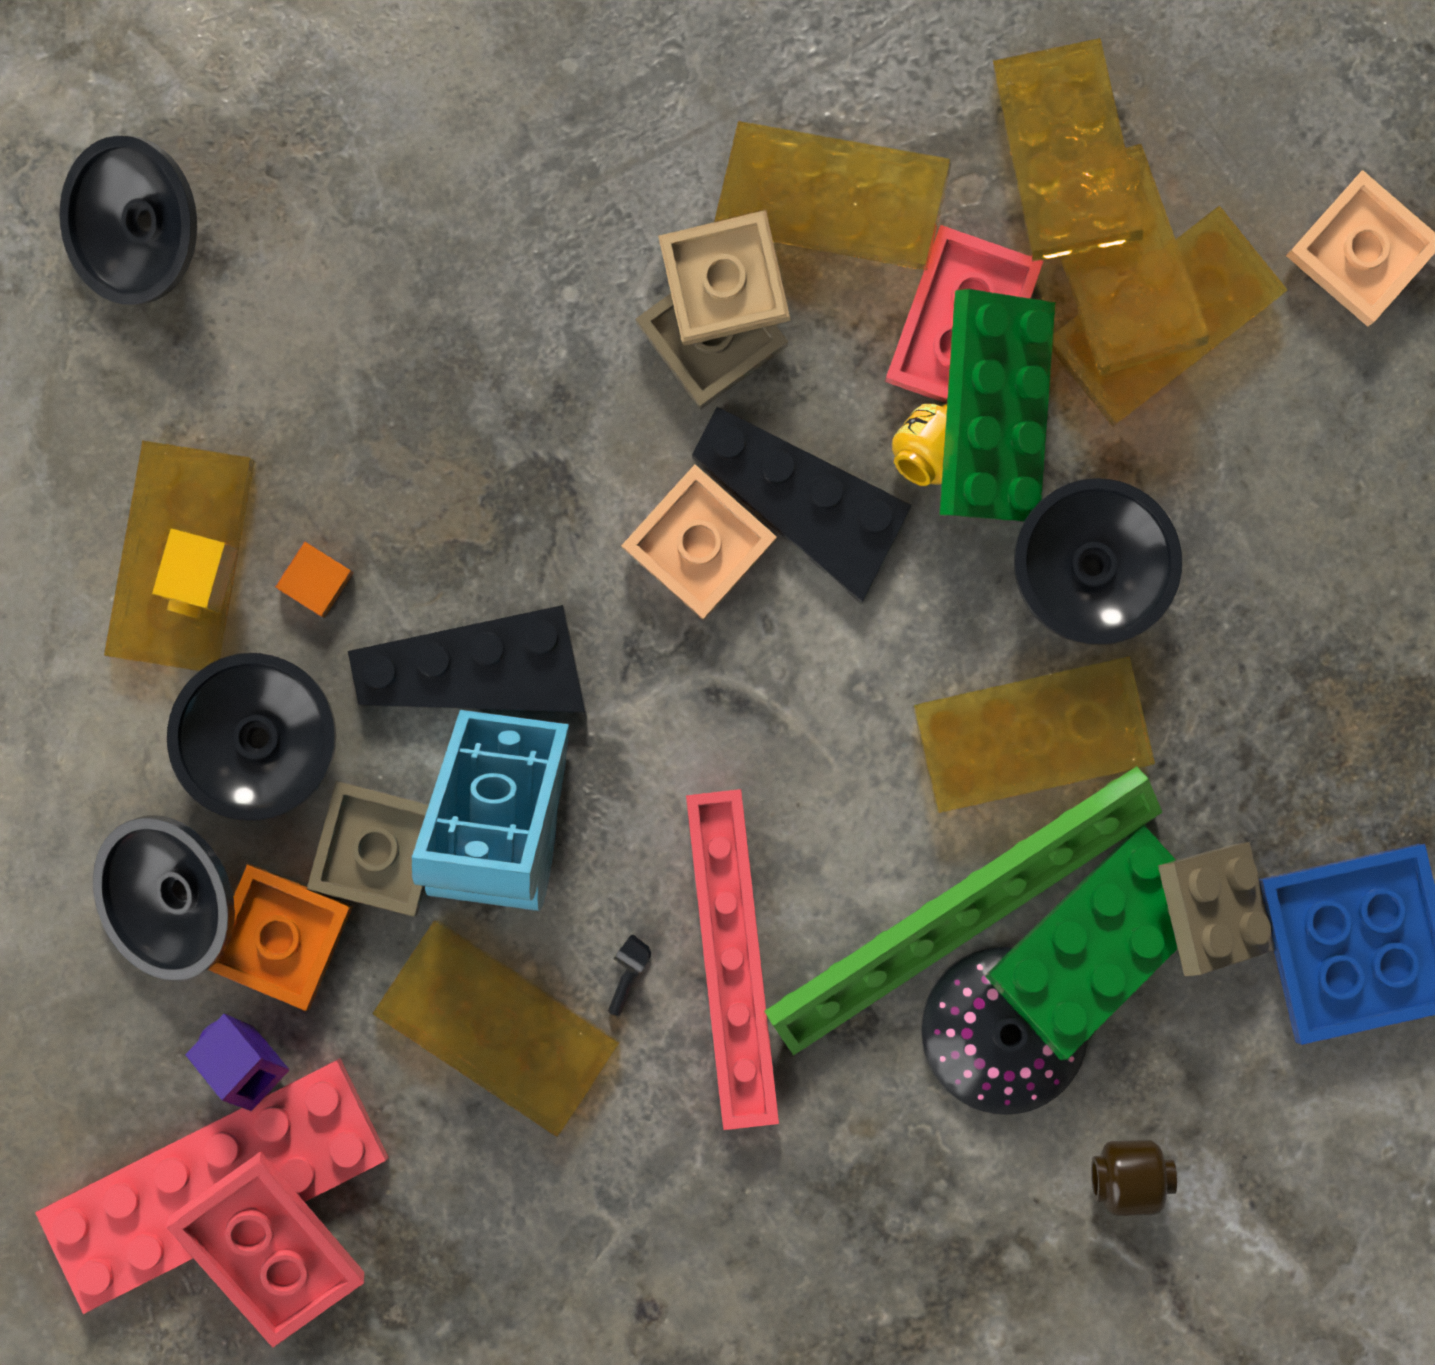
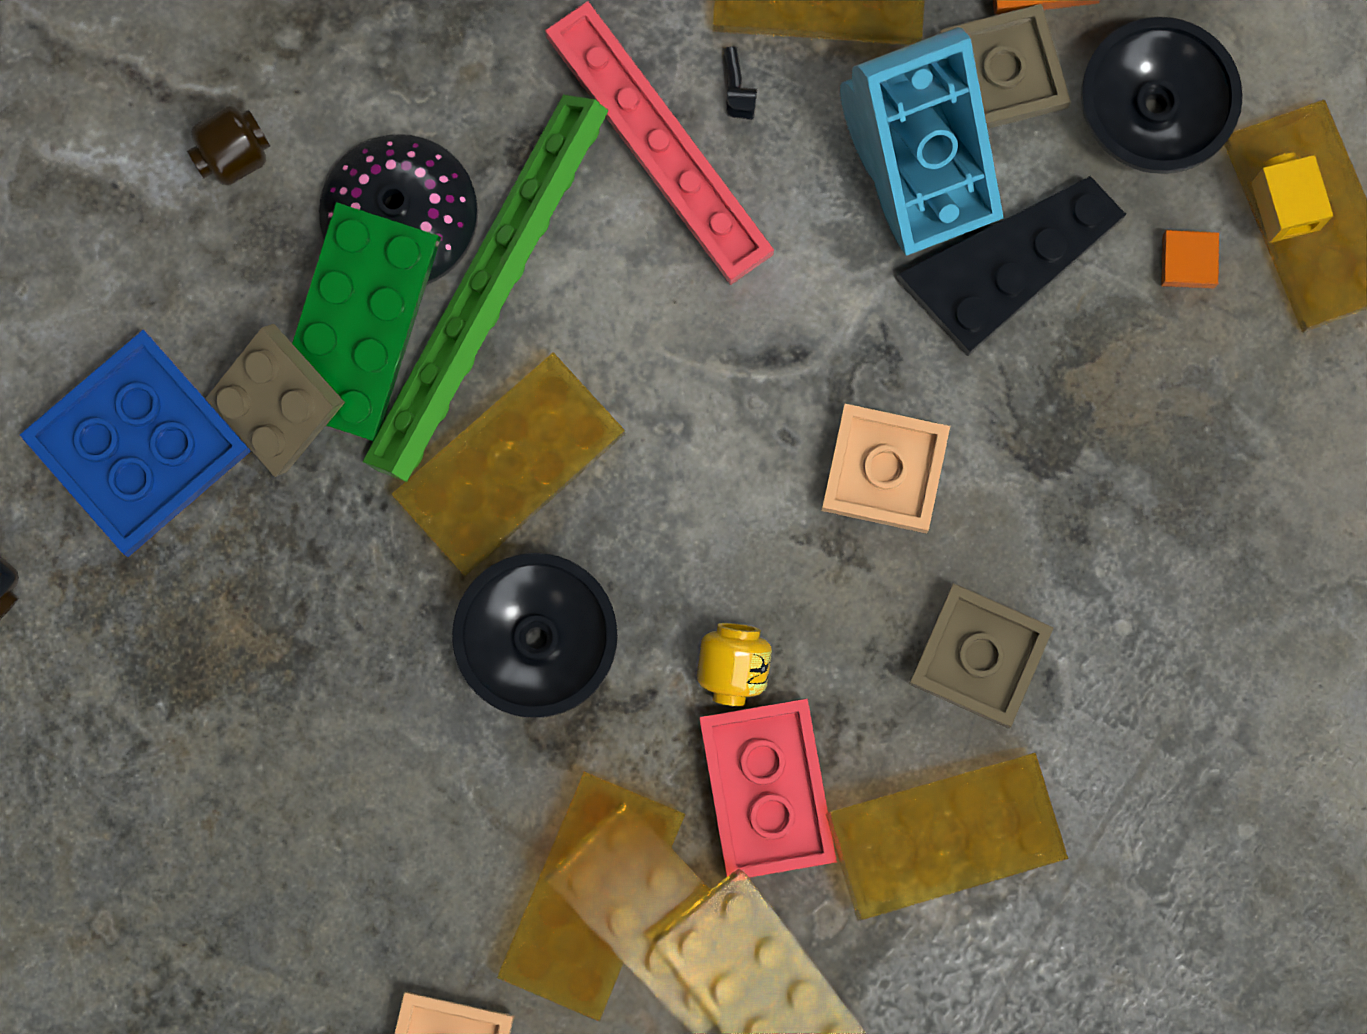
camera: 150 degrees right, 5 degrees down
(724, 278) = (997, 702): tan tile -> none
(815, 505) = (808, 558): black wing -> none
(996, 405) = (697, 722): green plate -> none

